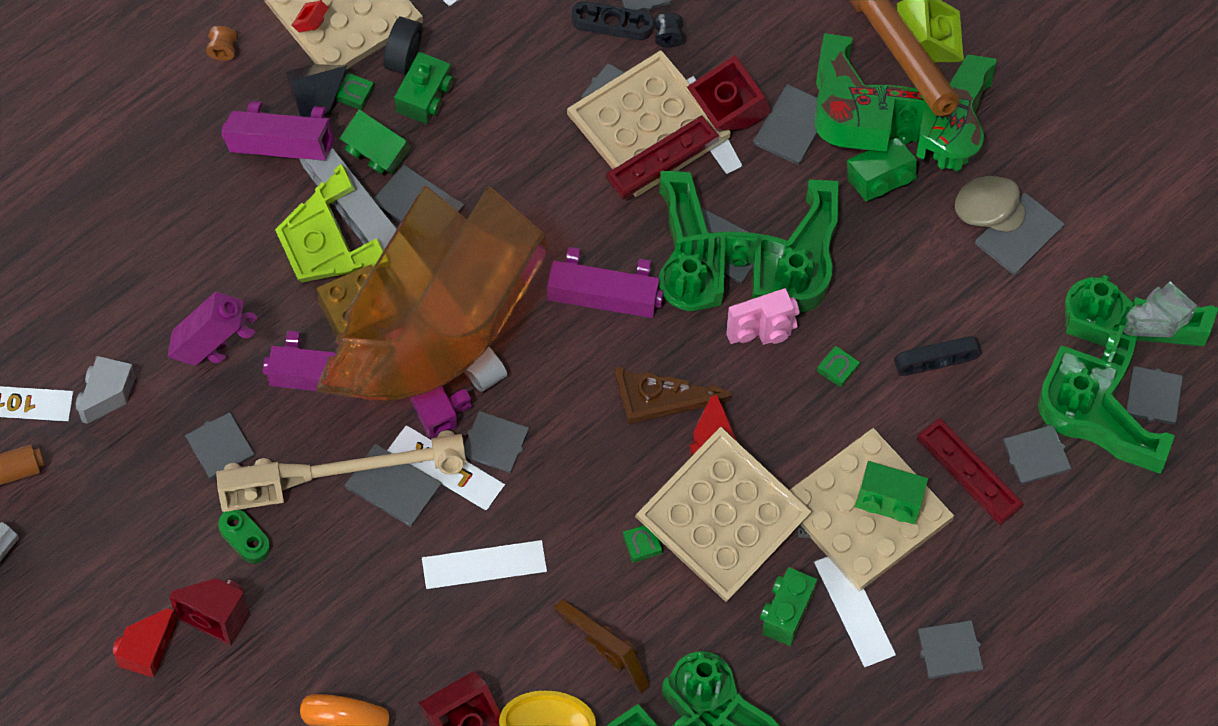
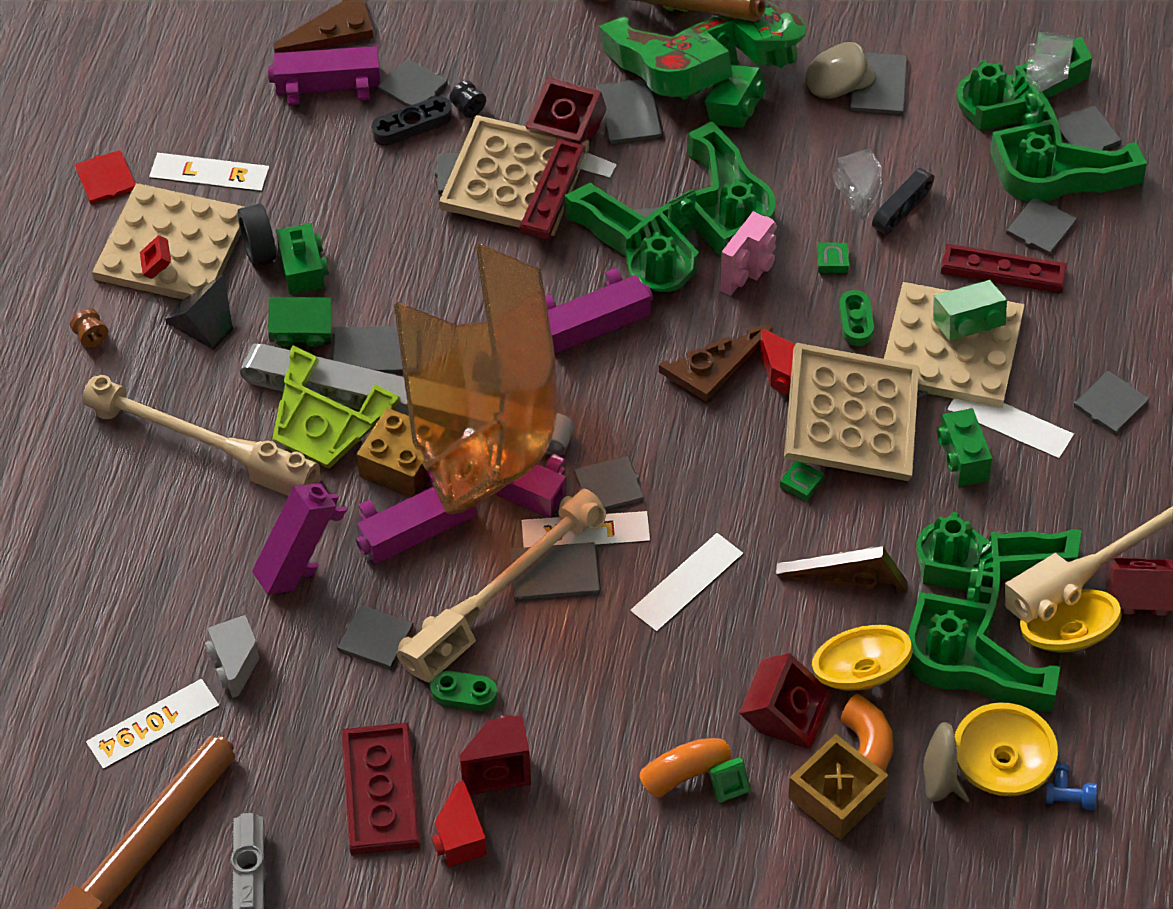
camera: 35 degrees left, 10 degrees down
(121, 570) = (379, 788): none -> dark red tile
(251, 239) = (264, 460): none -> tan bar
(279, 134) = (210, 361): magenta brick -> none
(354, 91) = (242, 298): green tile -> none
(805, 435) = (857, 320): none -> green plate
(920, 314) = (860, 180): none -> clear slope

